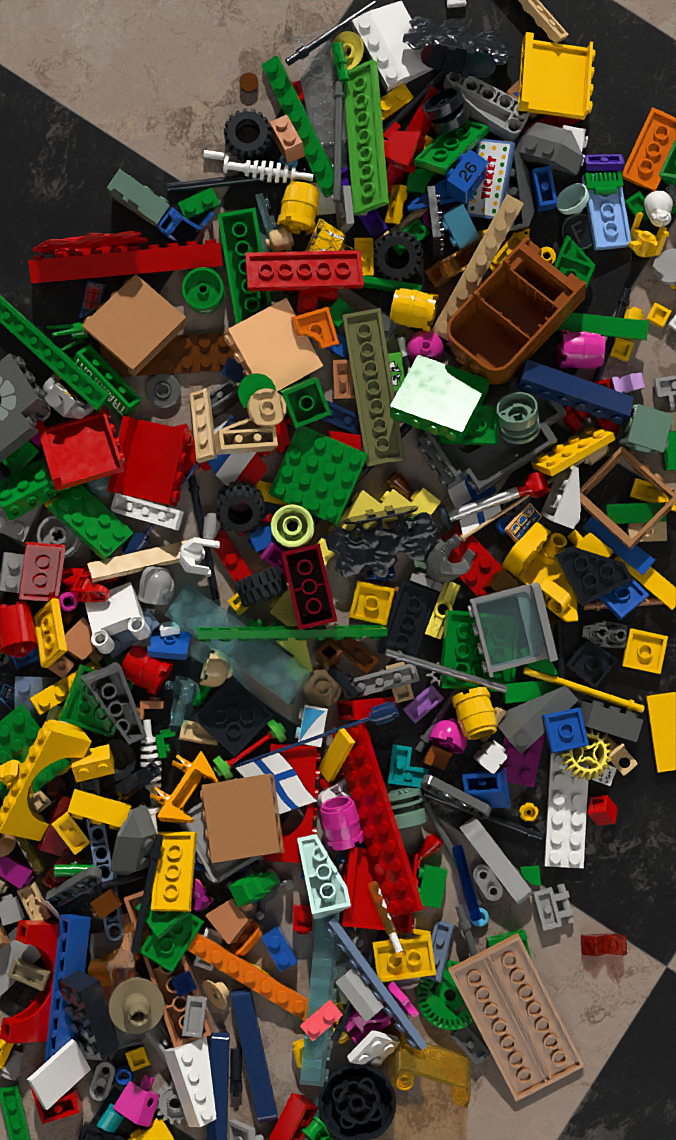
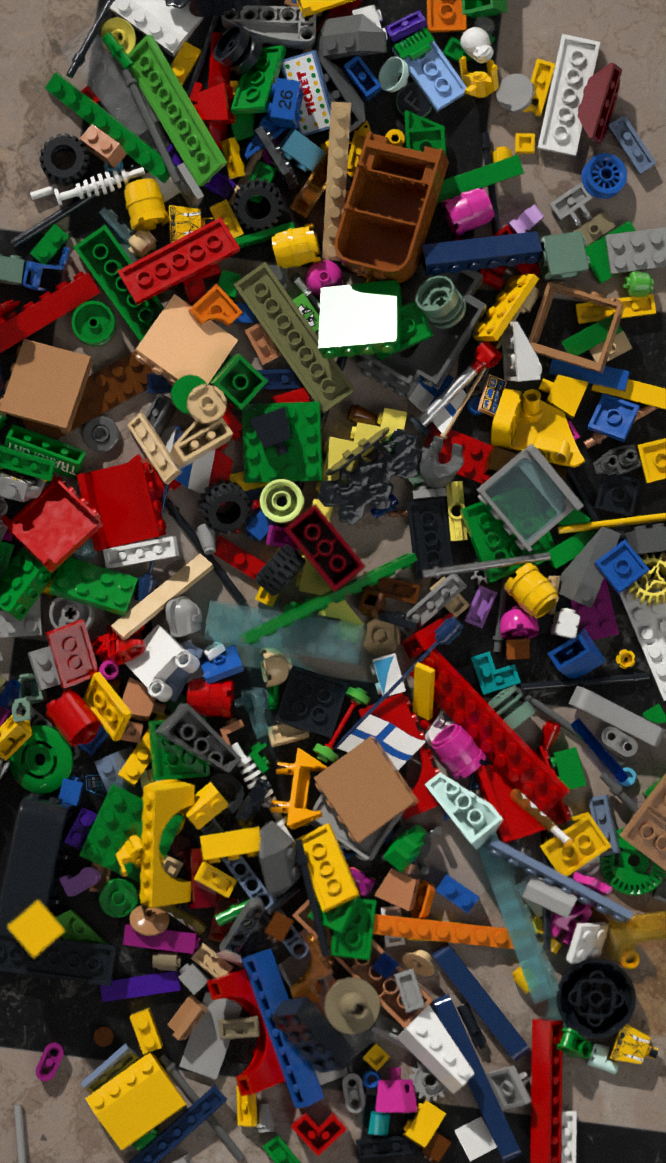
camera: 15 degrees left, 0 degrees up
(59, 1074) = (311, 1102): white tile -> none
(191, 555) = (202, 571): white piece -> none
(248, 82) = (41, 109): reddish brown tile -> none
(302, 919) = (465, 856): red bracket -> none
(316, 459) = (274, 429): none -> black torso
(321, 1020) = (526, 936): coral plate -> none
(371, 602) = (388, 536): yellow tile -> none
(455, 797) = (551, 676): dark grey beam -> none
(591, 573) = (576, 412): black plate -> none
(621, 349) = (506, 191): yellow plate -> none

